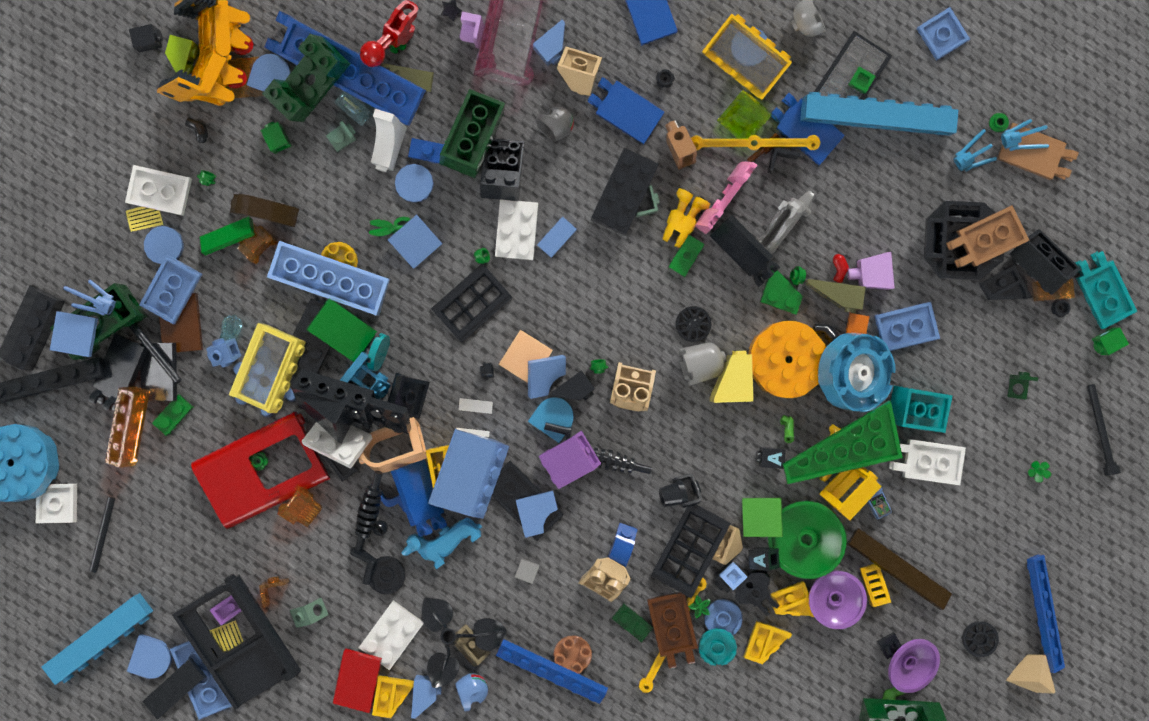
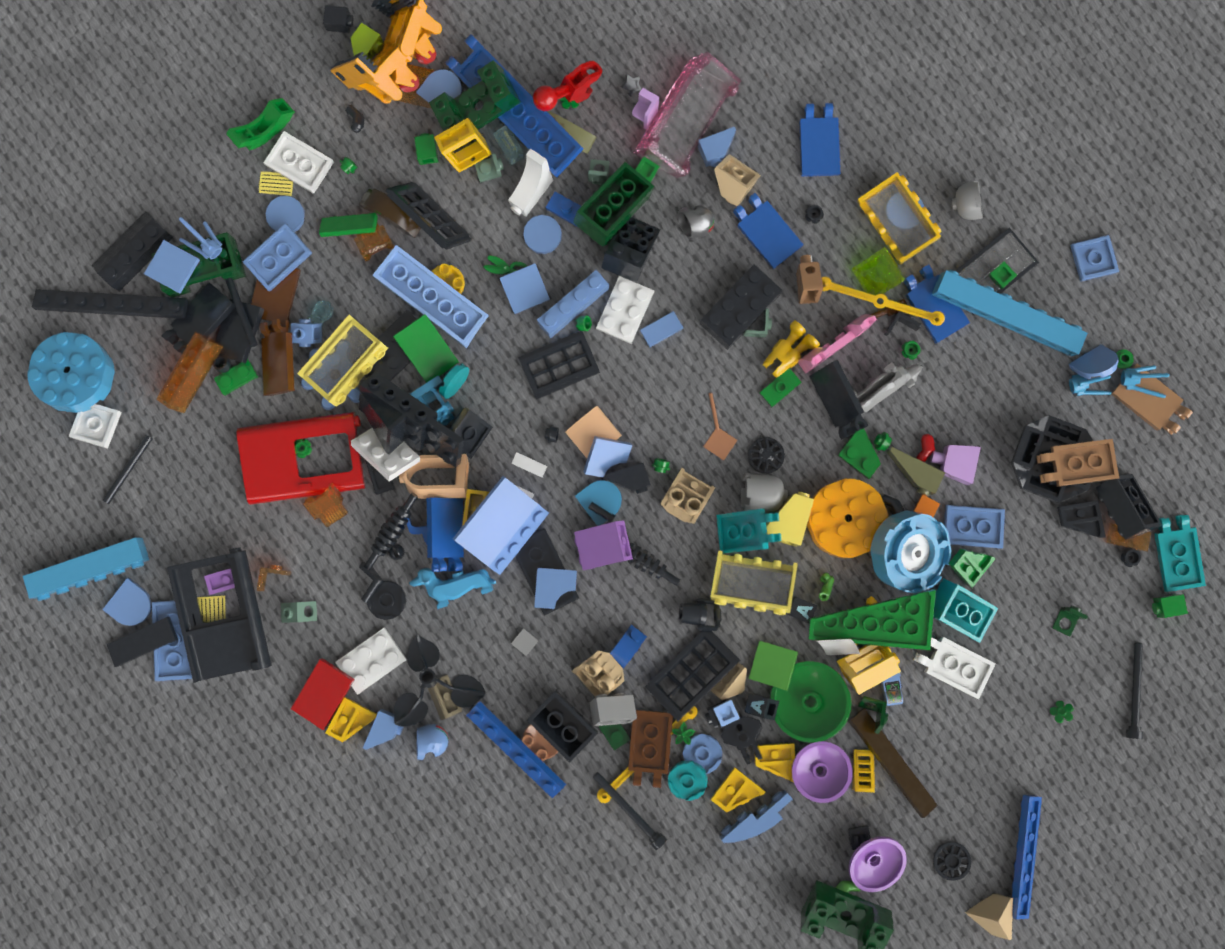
camera: 20 degrees right, 5 degrees down
(114, 166) = (263, 128): none -> green arch
(155, 406) = (222, 364): none -> black hinge
(204, 385) = (277, 358): none -> reddish brown tile
(269, 183) = (395, 194): none -> black piece
(303, 117) = (457, 137): none -> yellow window
(449, 111) = (598, 177): none -> sand green bracket
(465, 241) = (573, 304): none -> medium blue brick
(492, 88) = (647, 169): none -> green plate
(587, 636) = (562, 726): none -> black slope
(628, 607) = (613, 709): none -> light grey brick
(646, 325) = (719, 442): none -> nougat piece
(697, 403) = (745, 530): none -> teal tile
(707, 709) = (657, 839): none -> black piece
(720, 448) = (753, 583): none -> clear window
(789, 668) = (750, 825): none -> medium blue slope
(797, 174) = (915, 350): none -> green plate
(818, 481) = (839, 647): none -> white sticker
(876, 530) = (879, 707): none -> dark green bracket
(915, 364) = (970, 565): none -> wing
(975, 135) = (1097, 362): none -> medium blue tile

